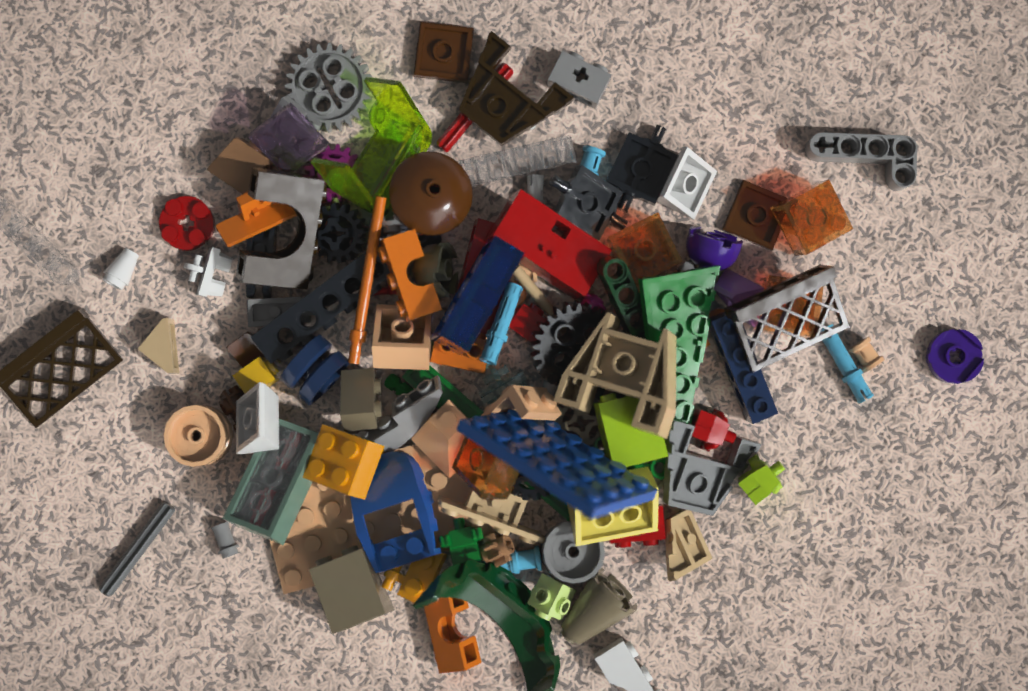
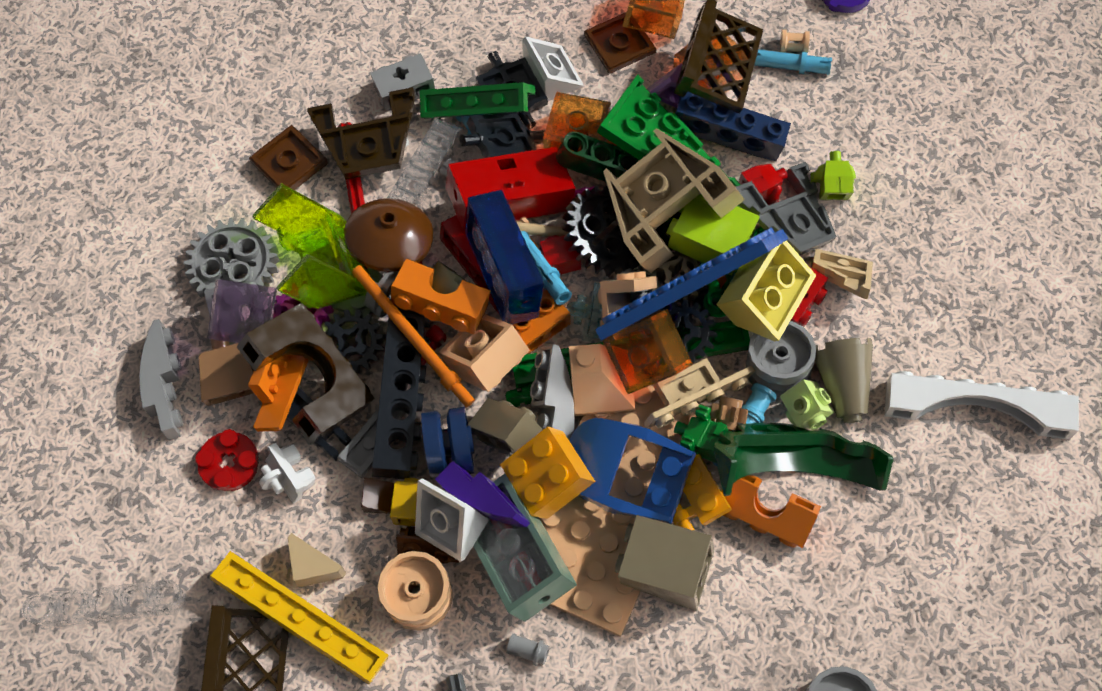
camera: 50 degrees left, 20 degrees down
(120, 372) = (299, 617): none -> yellow plate
(121, 269) = (212, 545): white cone -> none
(208, 111) = (156, 376): none -> light grey slope
(286, 433) = (481, 495): none -> dark purple slope
(603, 154) = (475, 100): none -> green fence
(712, 248) = (616, 80): dark purple cylinder -> none

